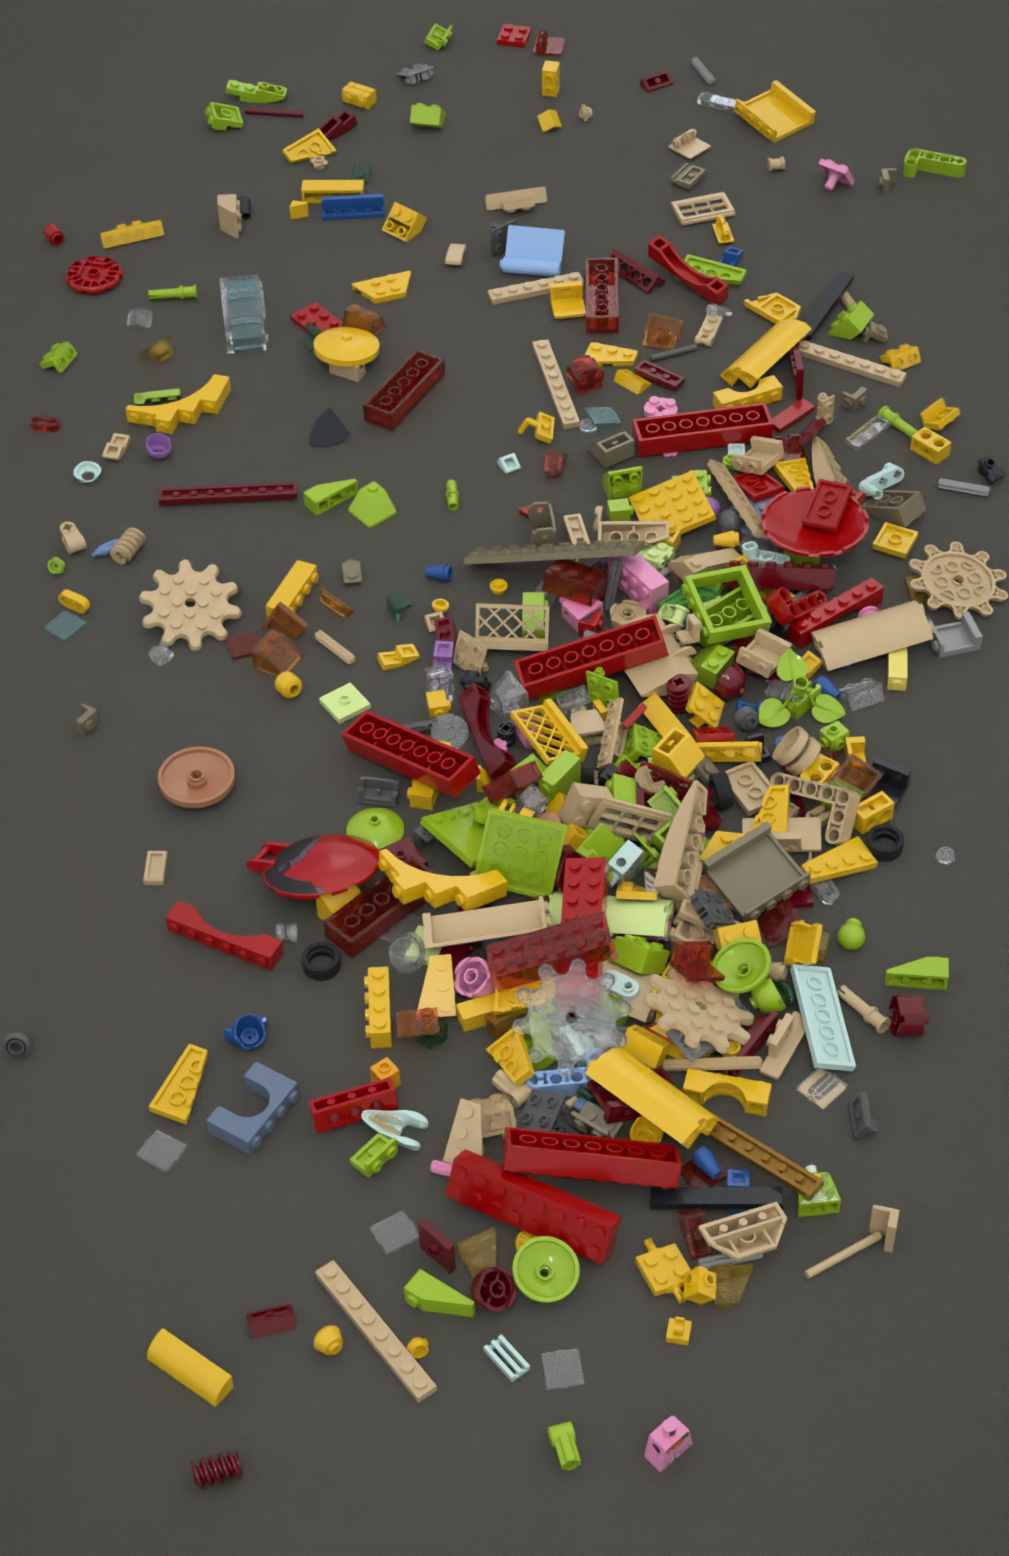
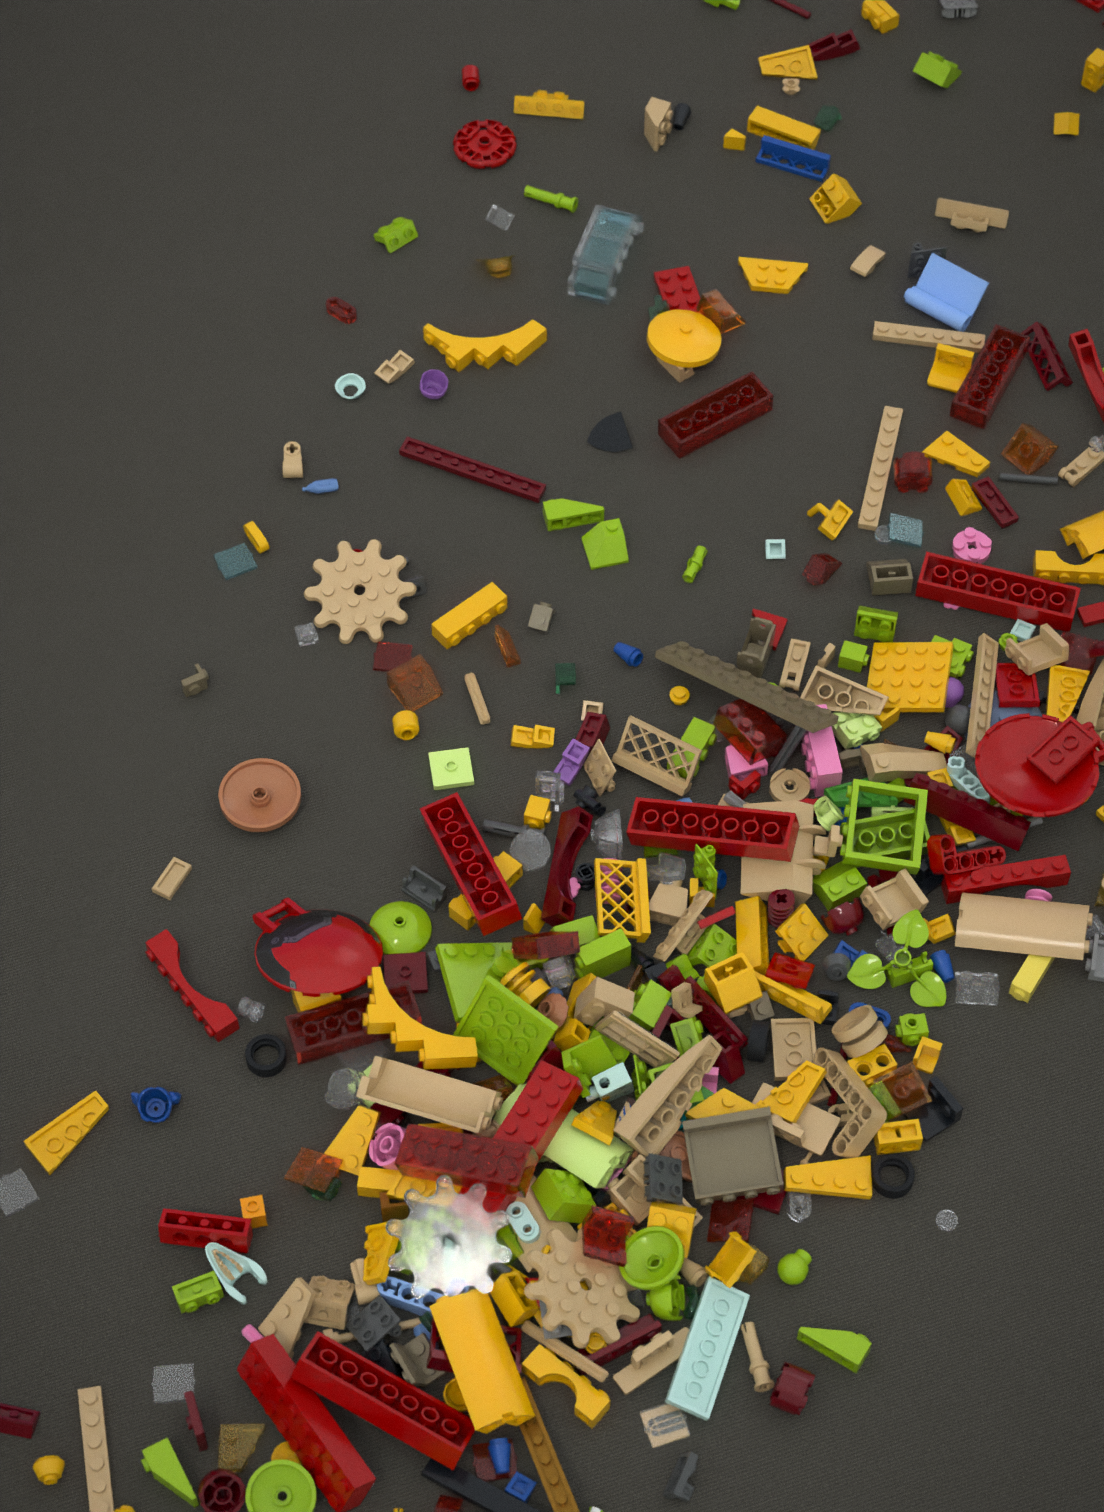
camera: 25 degrees right, 10 degrees up
(51, 565) = (257, 490): lime plate -> none
(127, 545) = (339, 491): tan piece -> none
(156, 396) = (466, 321): lime hinge -> none
(248, 1132) = (100, 1212): sand blue arch -> none
(285, 621) = (443, 650): dark orange wing -> none
(379, 1007) = (290, 1133): yellow brick -> none
(440, 605) = (607, 694): yellow piece -> none

